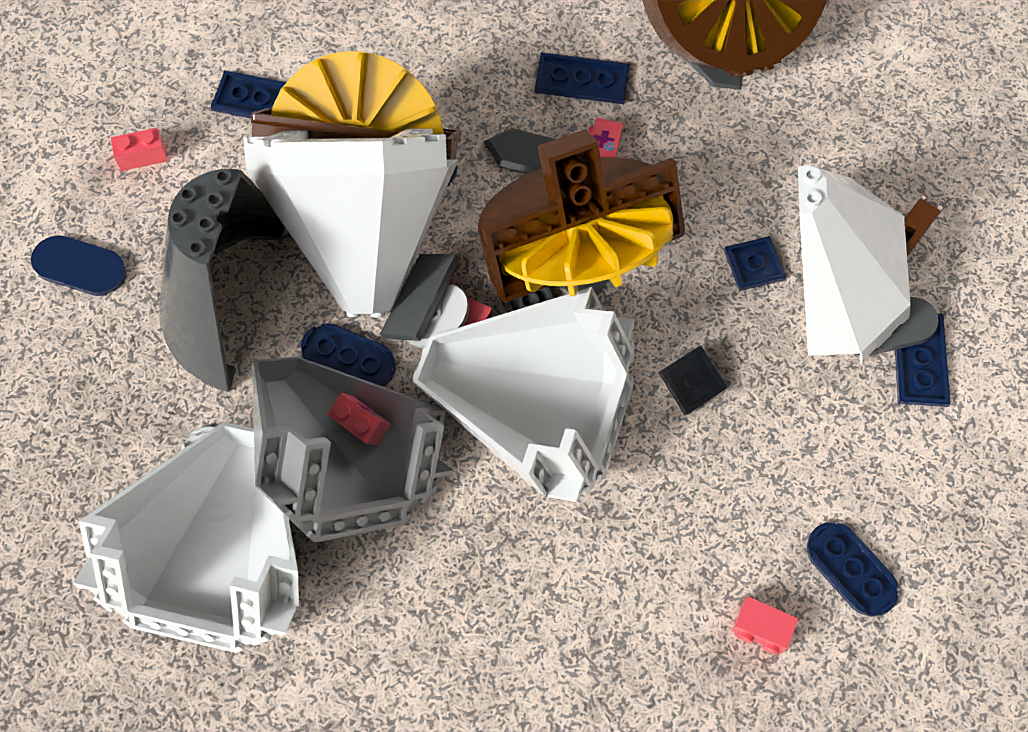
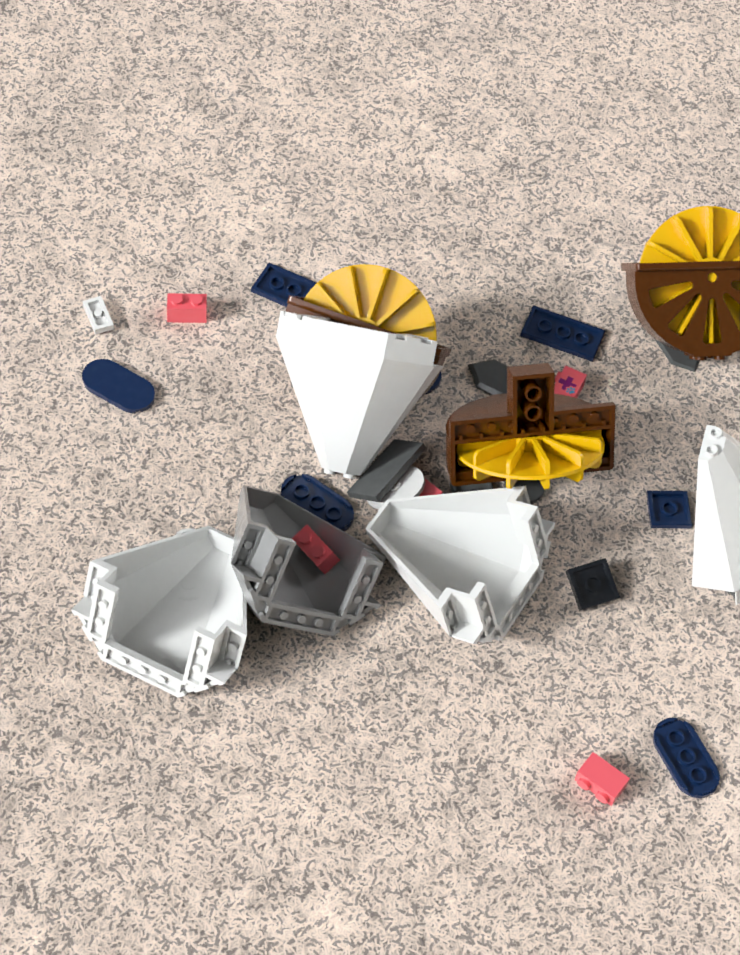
camera: 10 degrees right, 10 degrees down
(35, 182) = (98, 315): none -> white plate
(202, 221) = (240, 367): dark grey cone -> none

